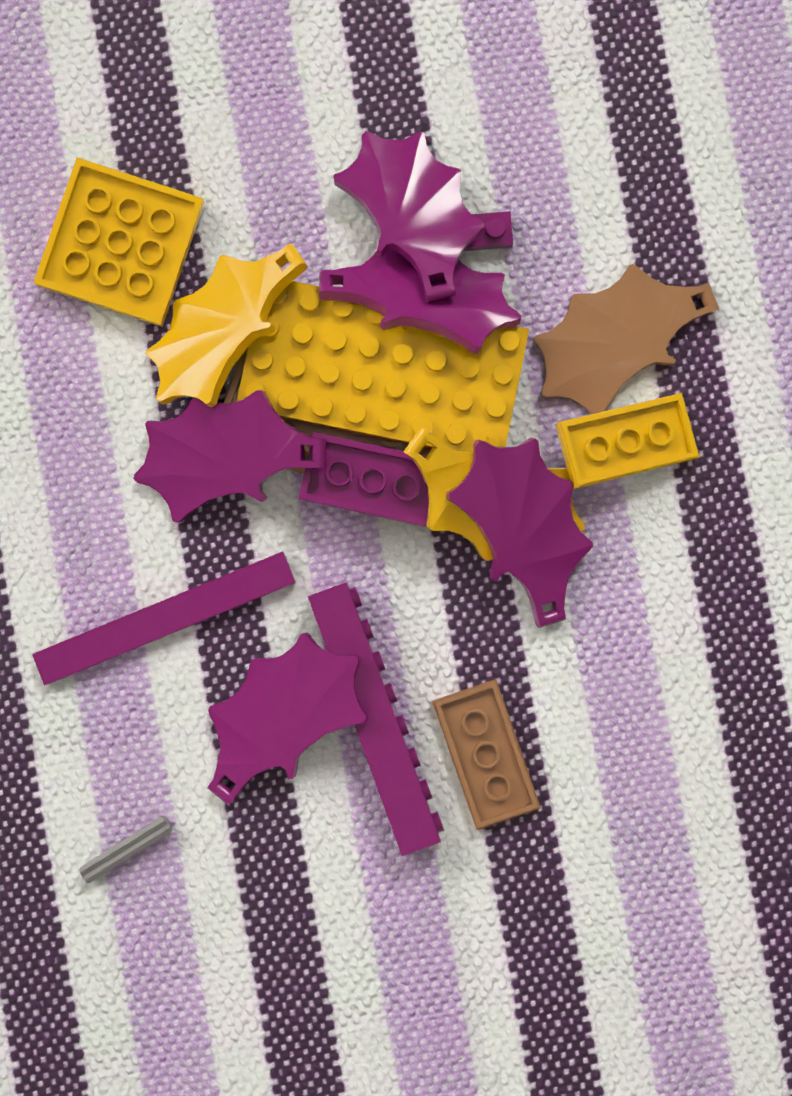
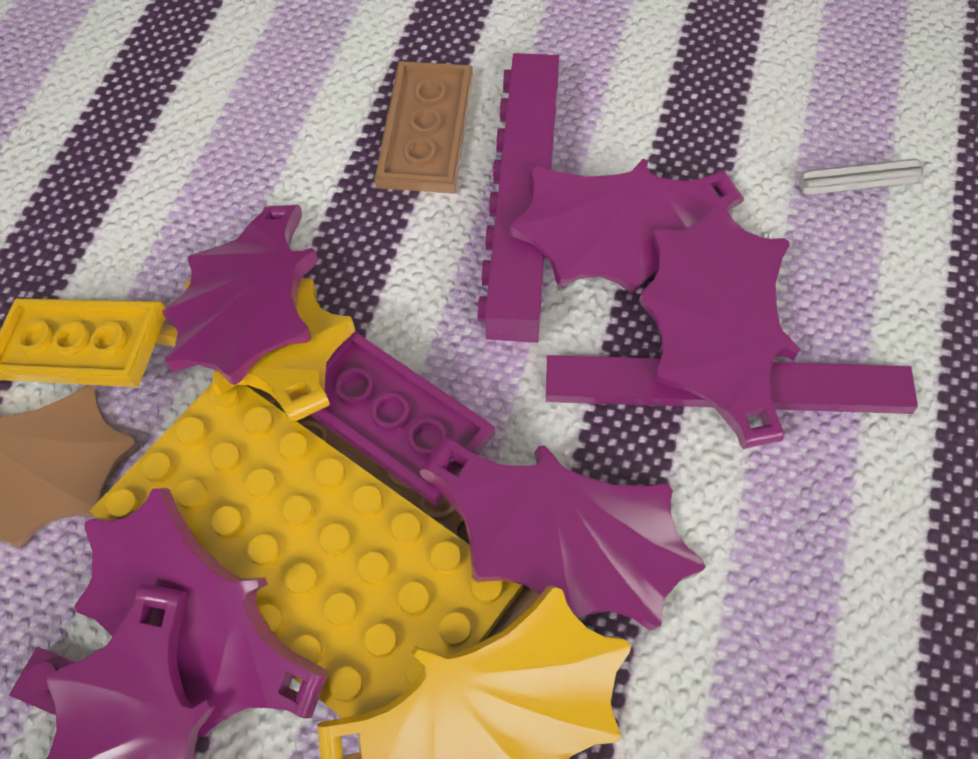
camera: 155 degrees left, 25 degrees down
(187, 663) = (720, 319): none -> magenta animal

